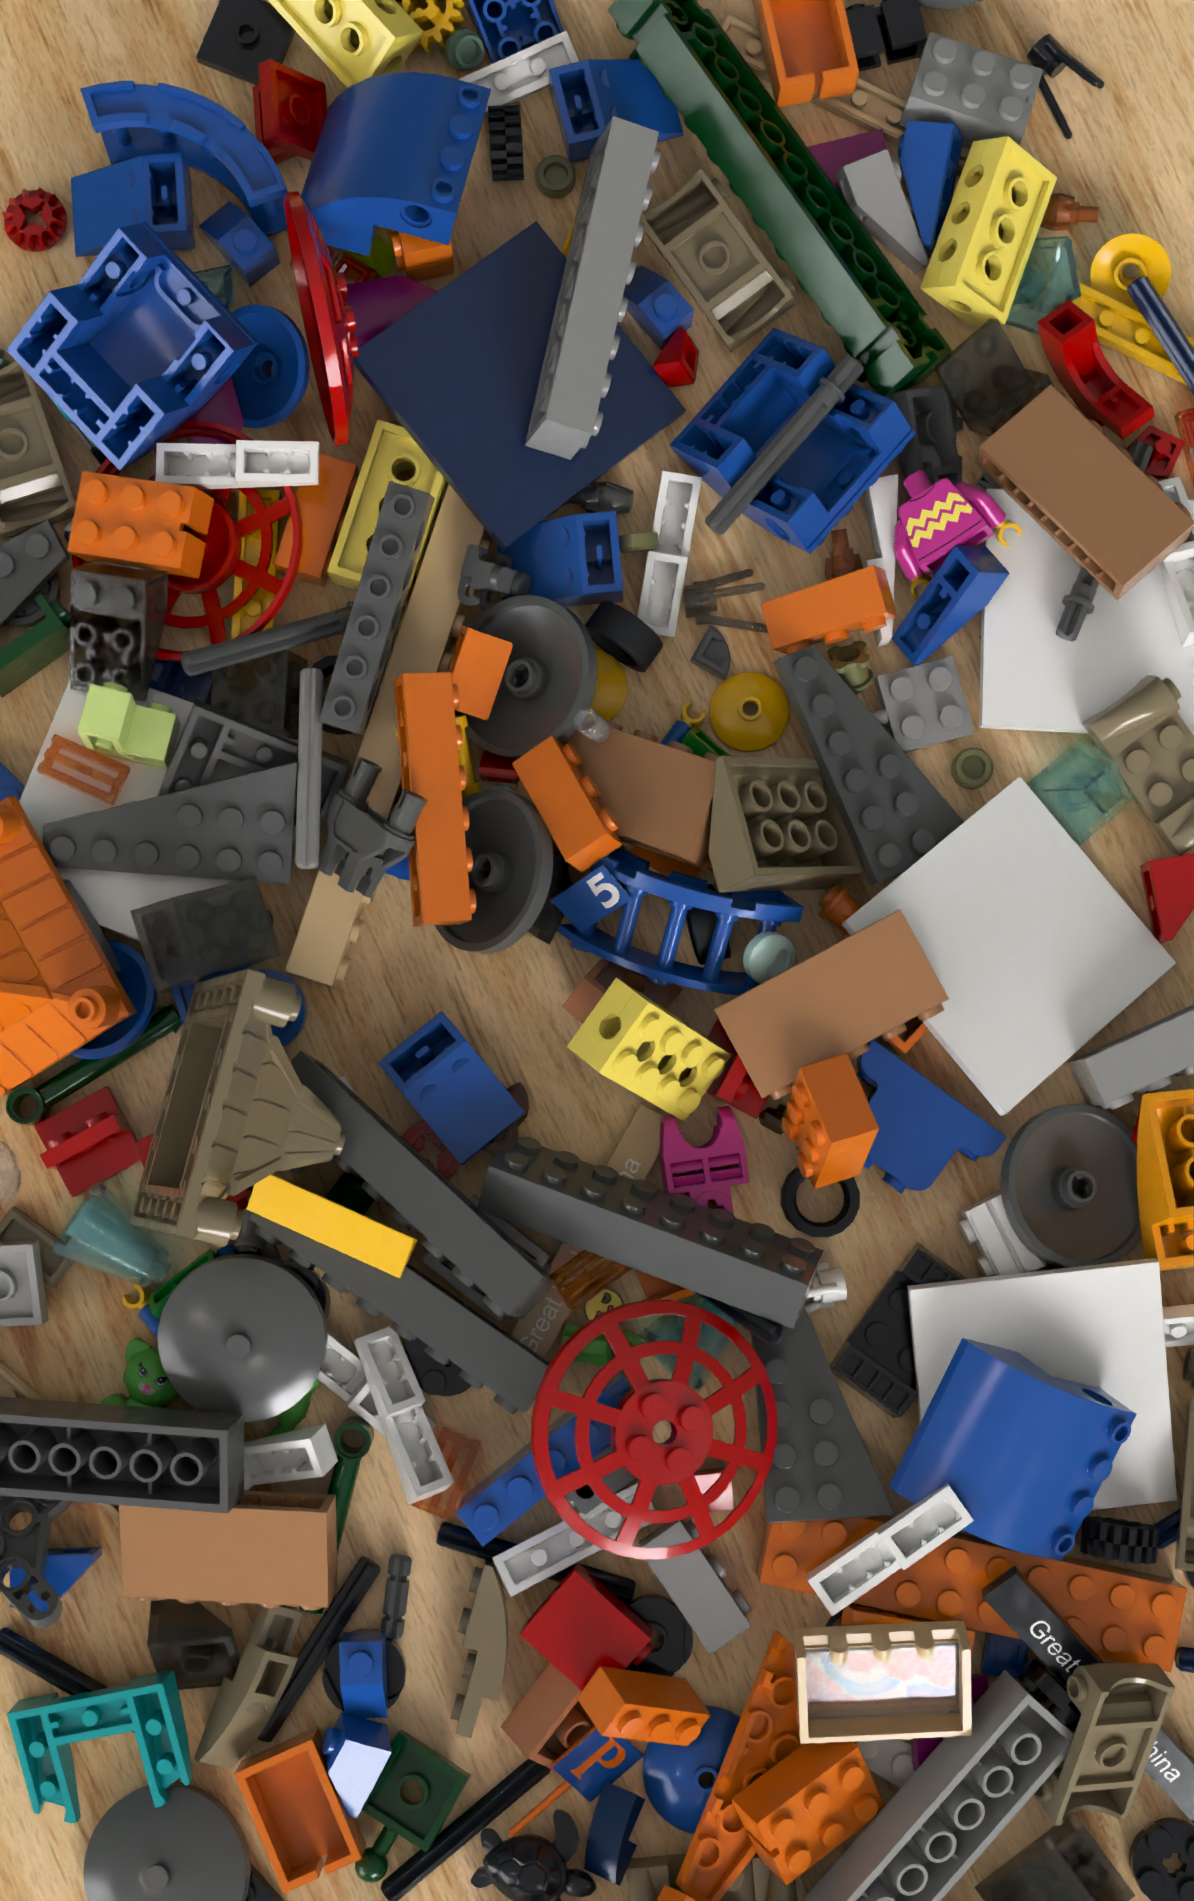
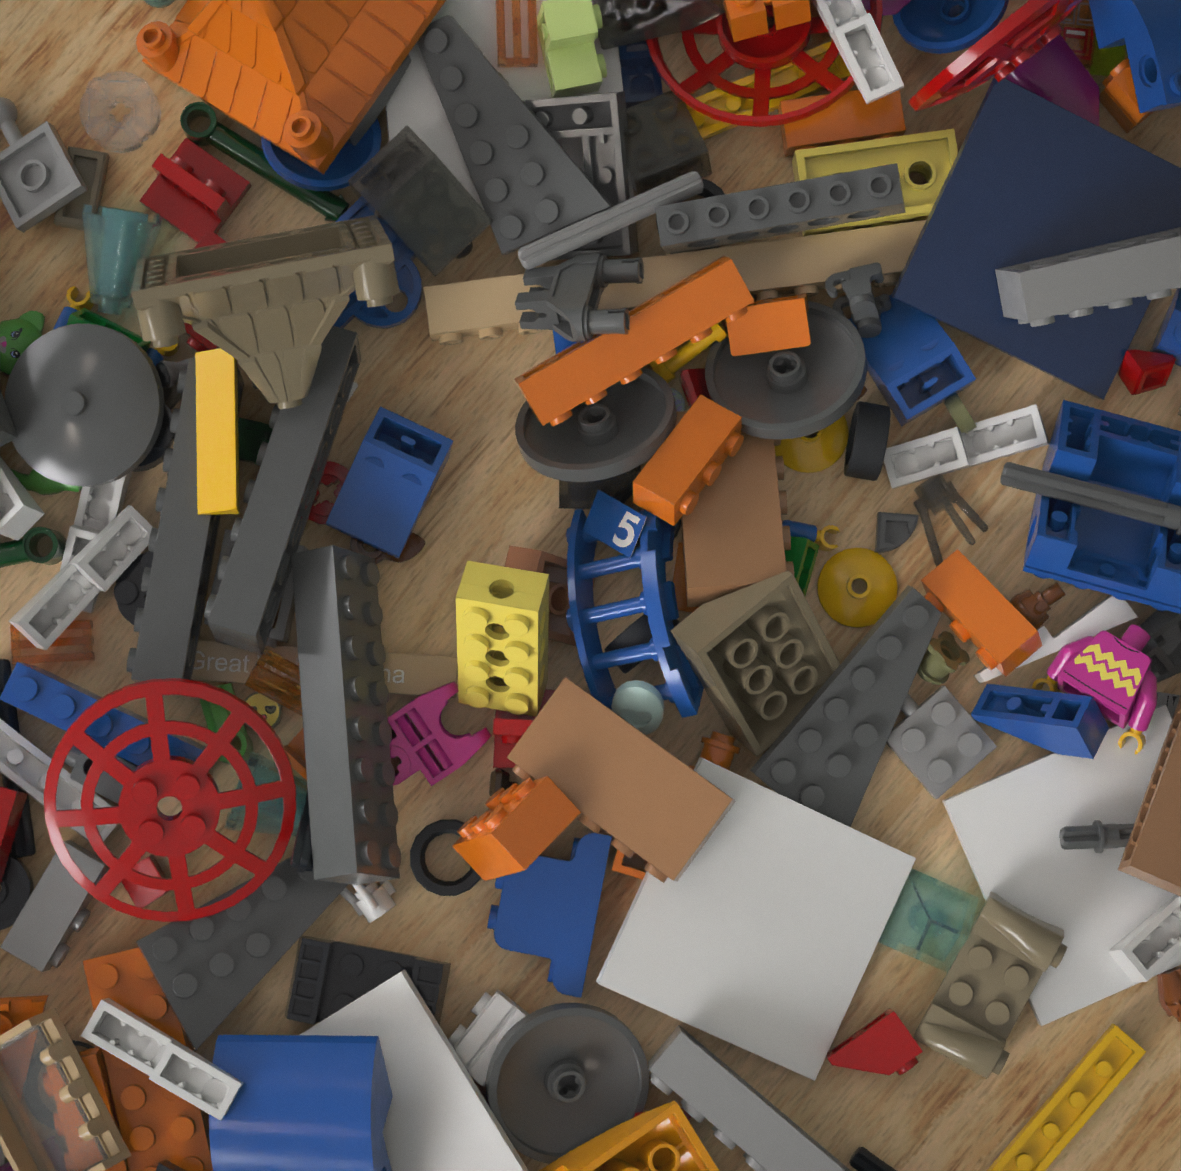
camera: 70 degrees right, 0 degrees up
(266, 642) = (704, 126): dark grey axle -> none
(593, 733) = (764, 449): clear piece -> none
(605, 498) = (986, 366): dark grey piece -> none
(972, 768) = (903, 813): olive tile -> none

